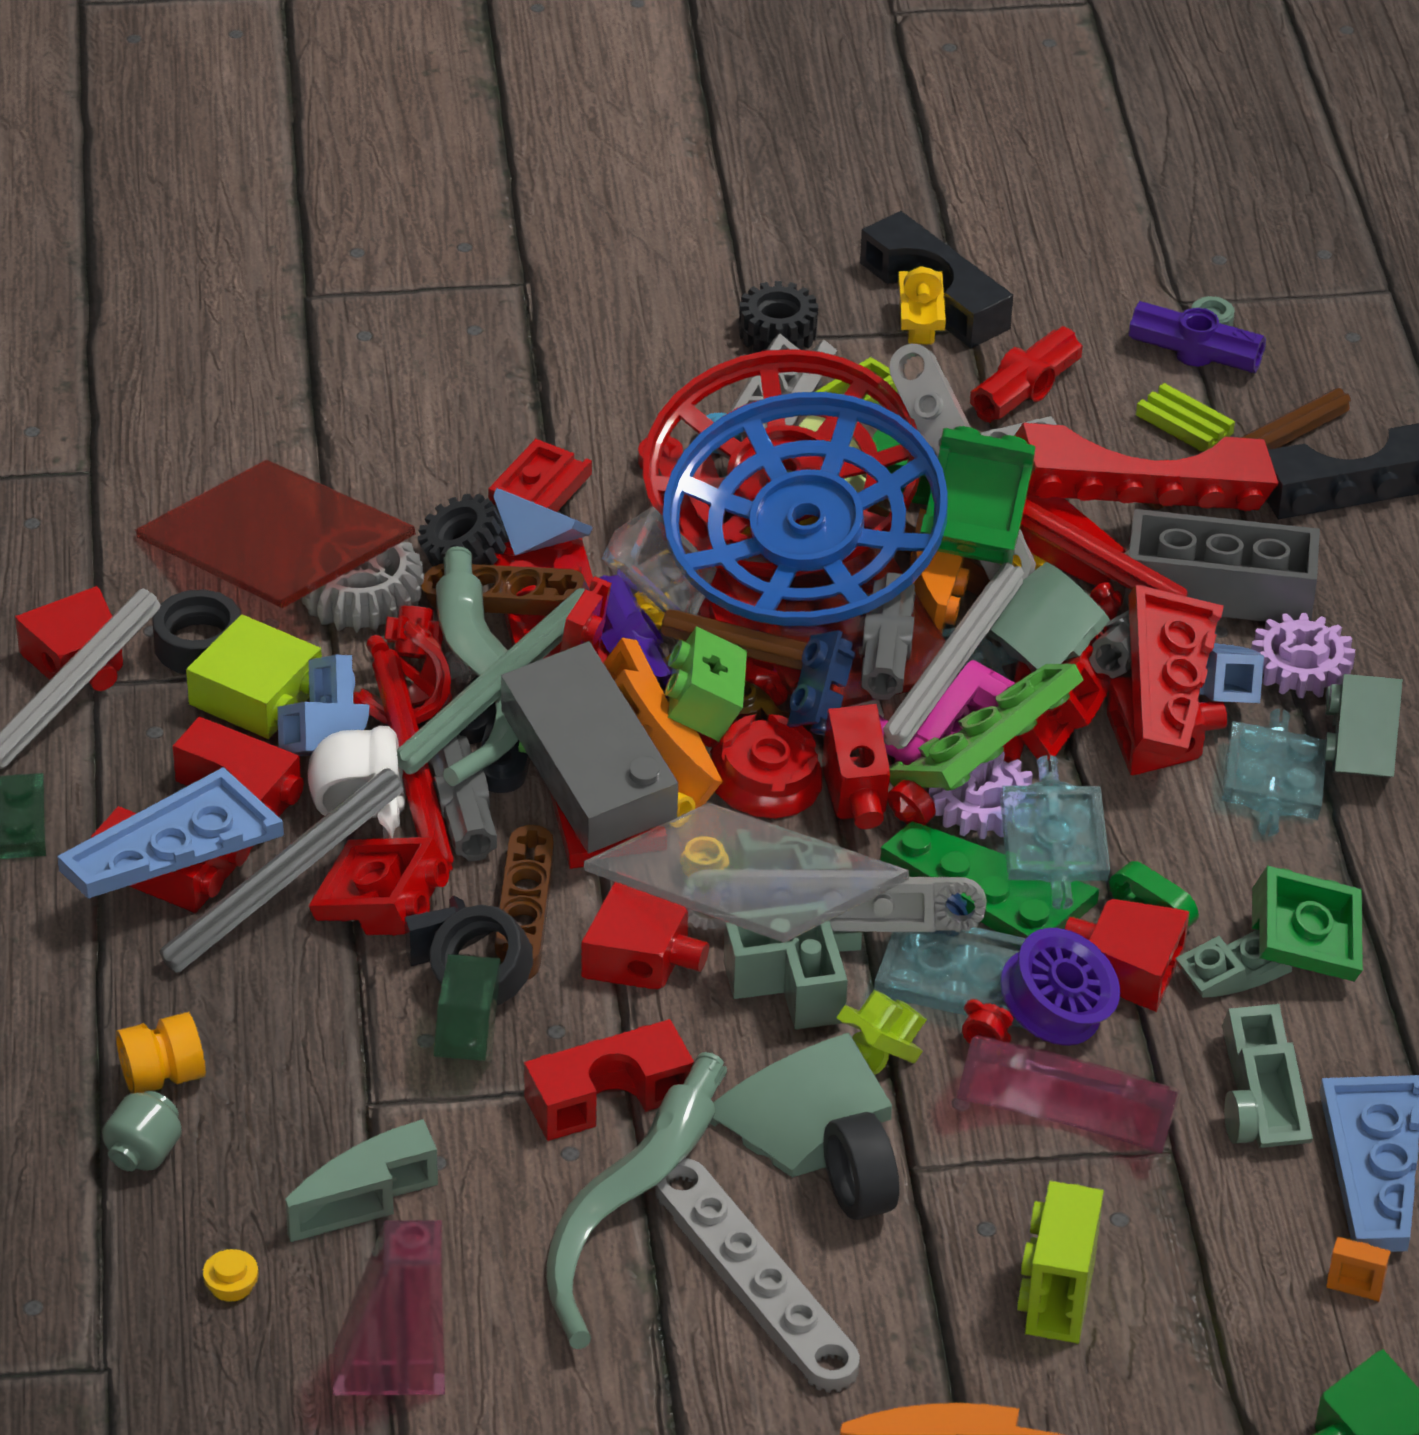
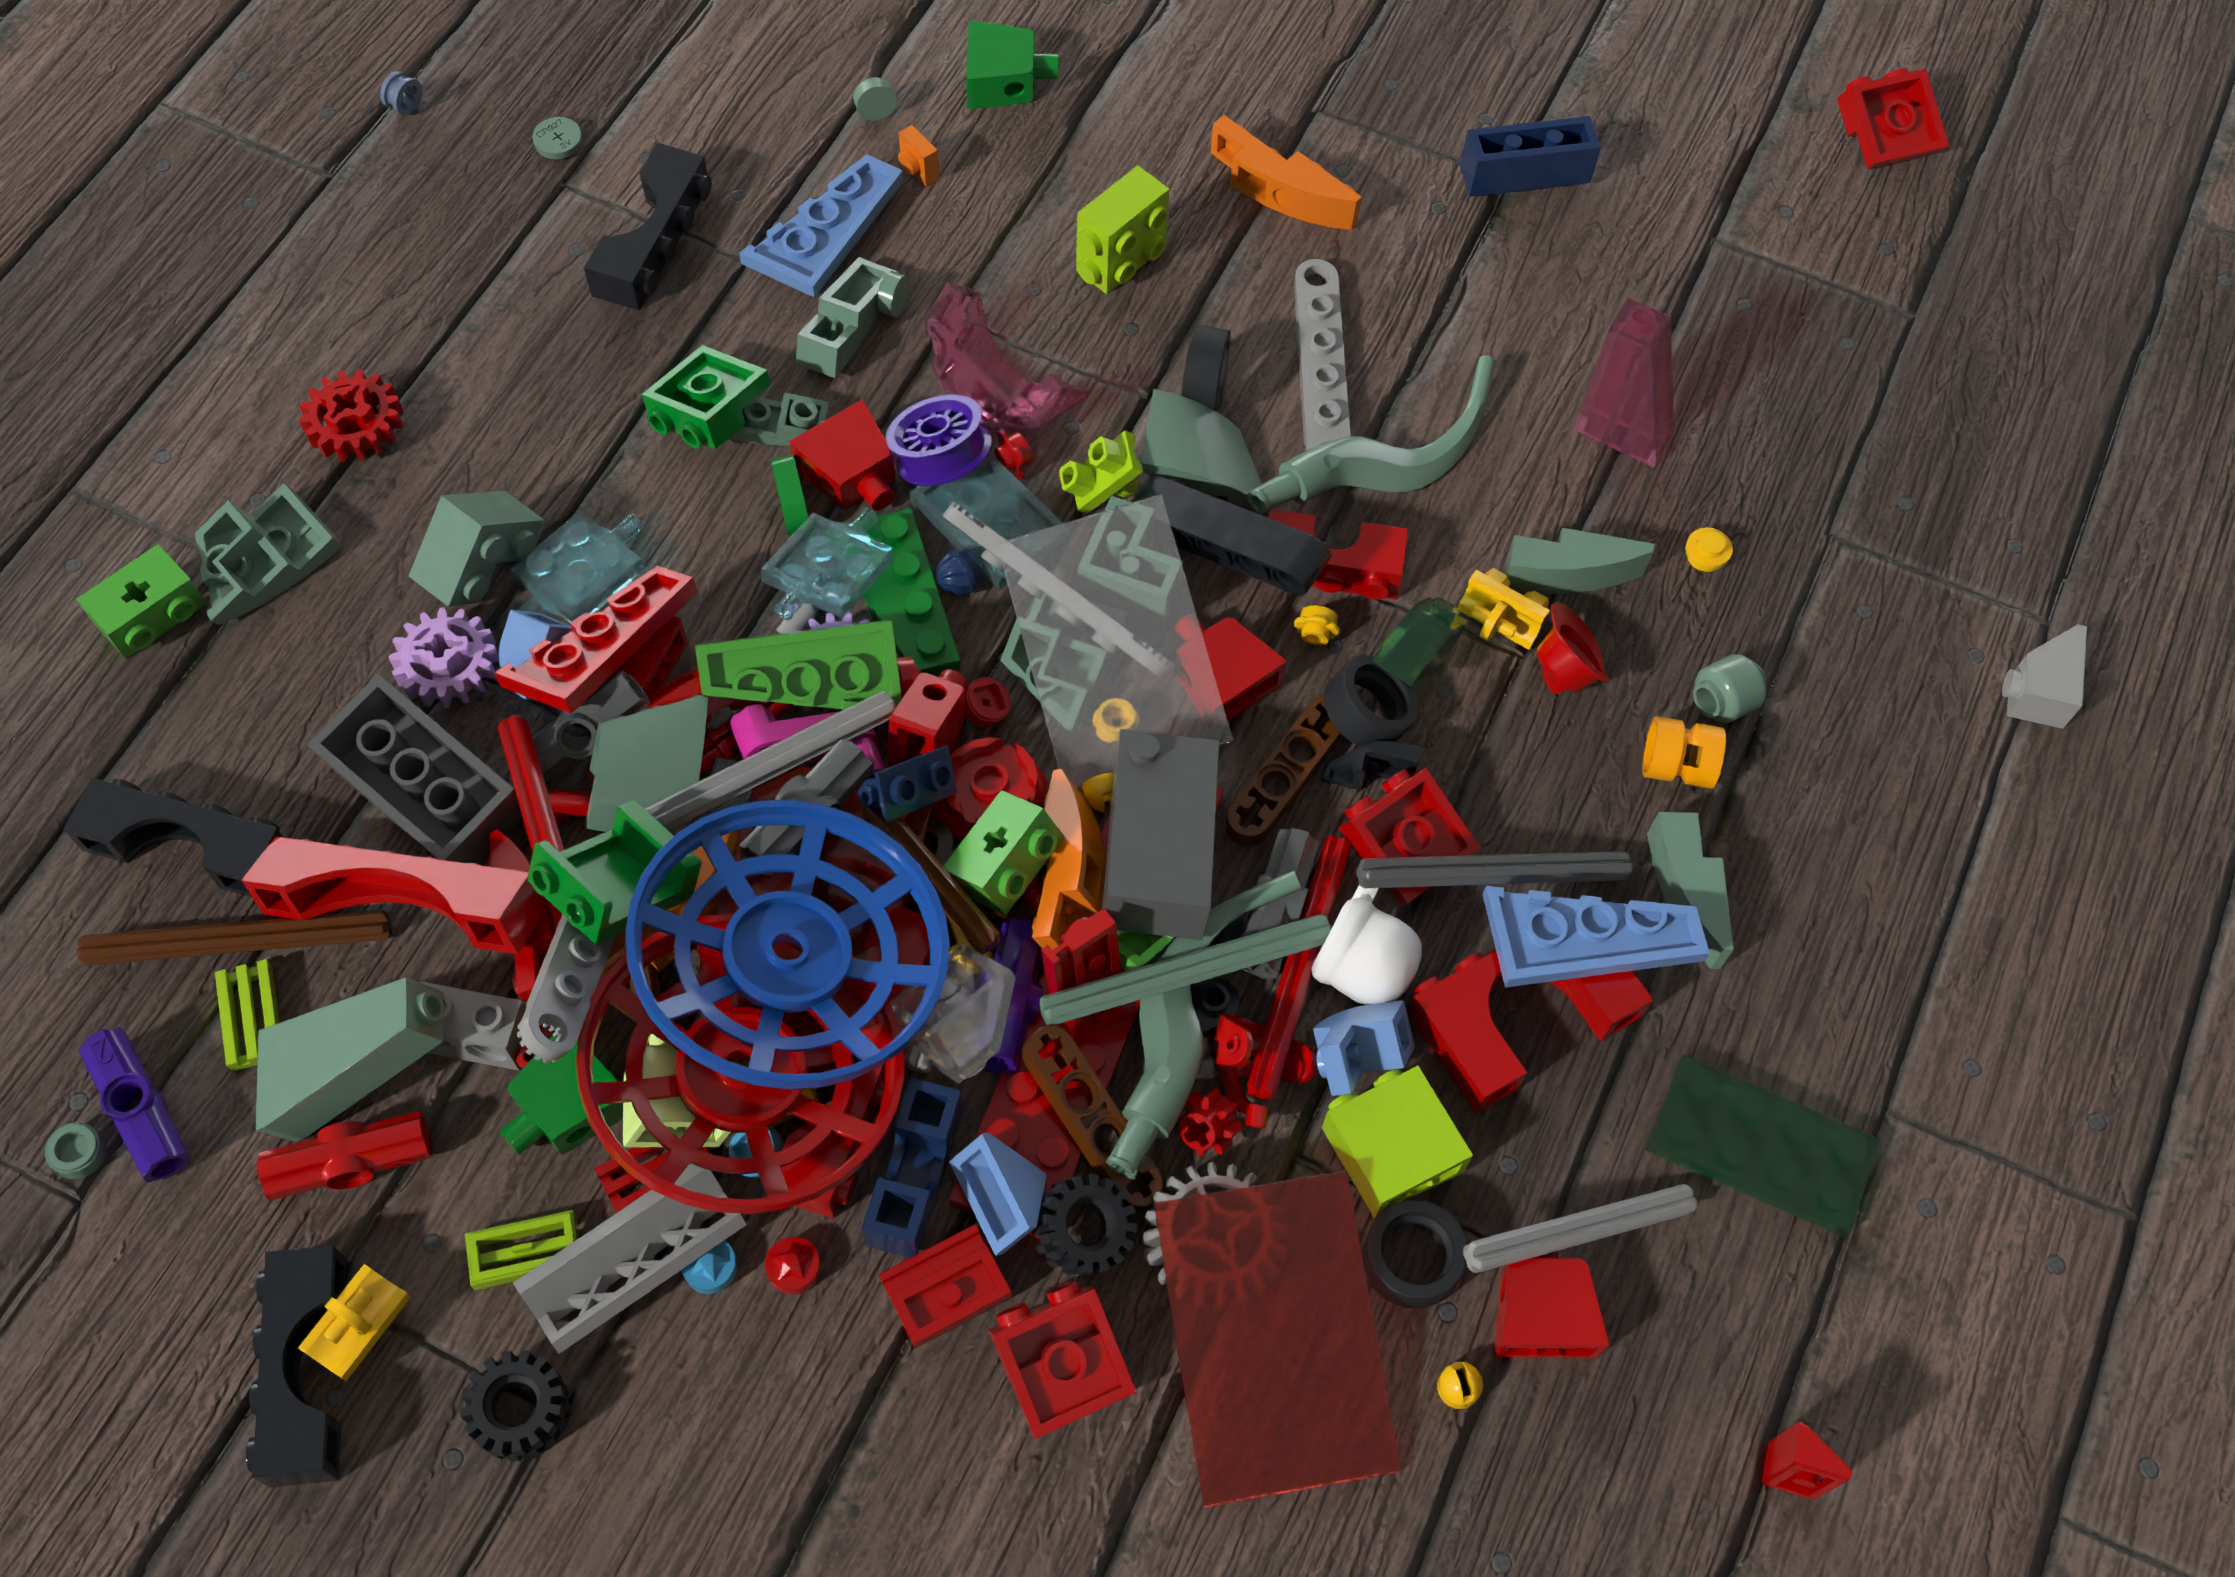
camera: 150 degrees left, 20 degrees up
(99, 961) = (1692, 879): none -> sand green slope
(112, 586) = (1450, 1387): none -> yellow hinge
(314, 1094) = (1570, 653): none -> red piece
(409, 1100) = (1503, 609): none -> yellow hips
(426, 473) = (1061, 1358): none -> red plate
(581, 1020) = (1317, 625): none -> yellow plate
(604, 492) = (920, 1153): none -> dark blue arch
(708, 1006) = (1239, 537): none -> black beam
(831, 824) = (986, 702): none -> red tile
(1081, 390) = (341, 1053): none -> sand green slope

